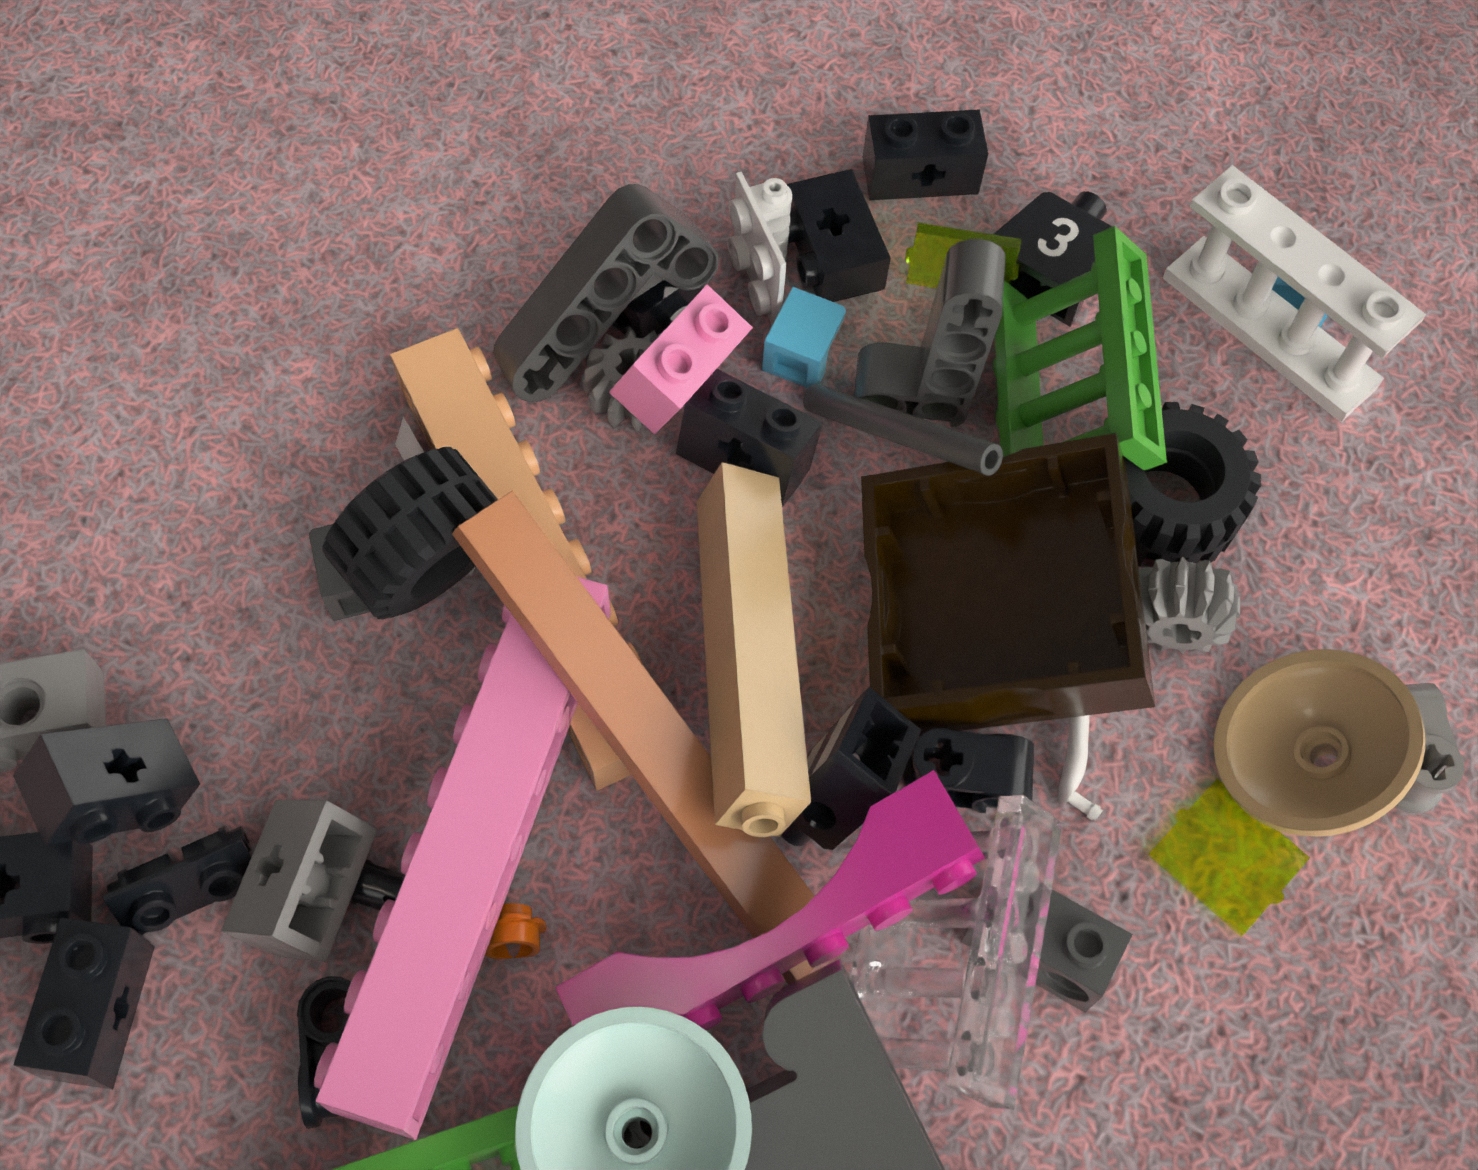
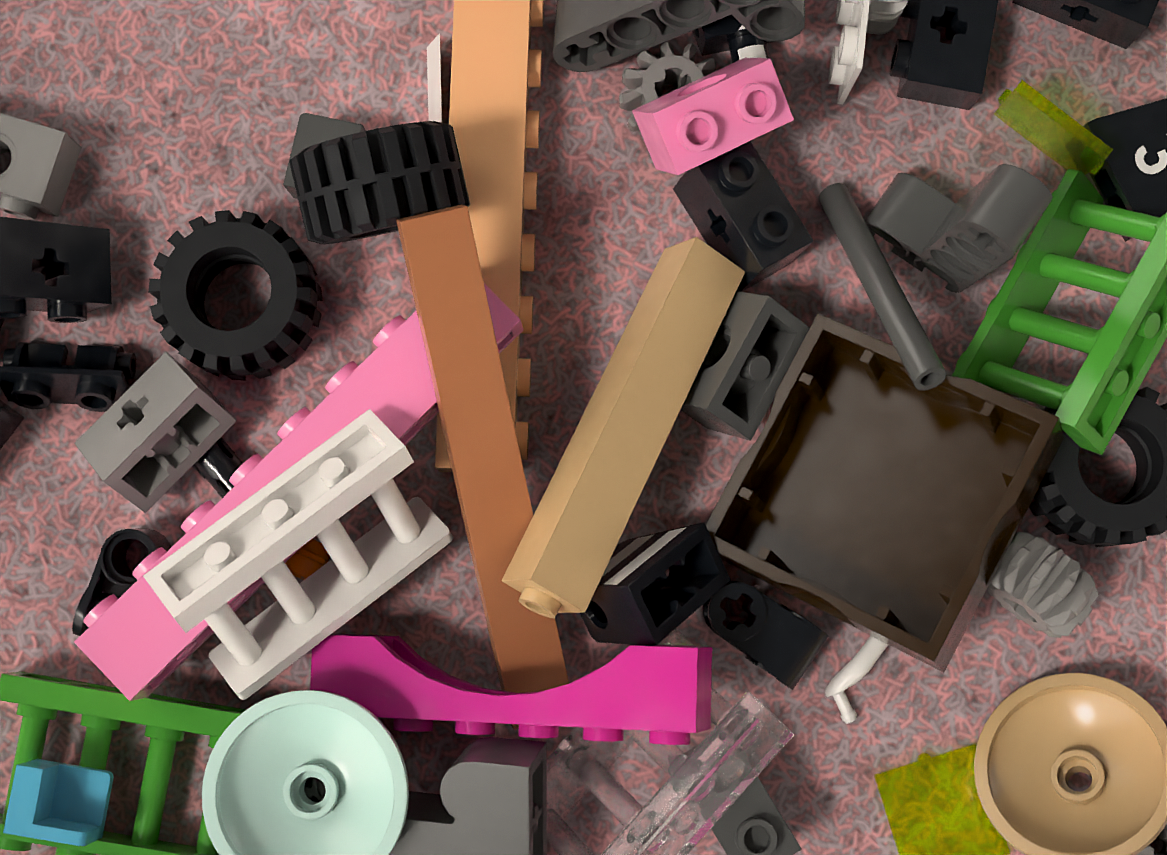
camera: 30 degrees right, 20 degrees up
(303, 672) = (200, 259): none -> black tyre
(462, 876) = (275, 524): none -> white fence
(801, 338) = (853, 131): medium azure panel -> none
(824, 552) = (744, 365): none -> dark grey brick

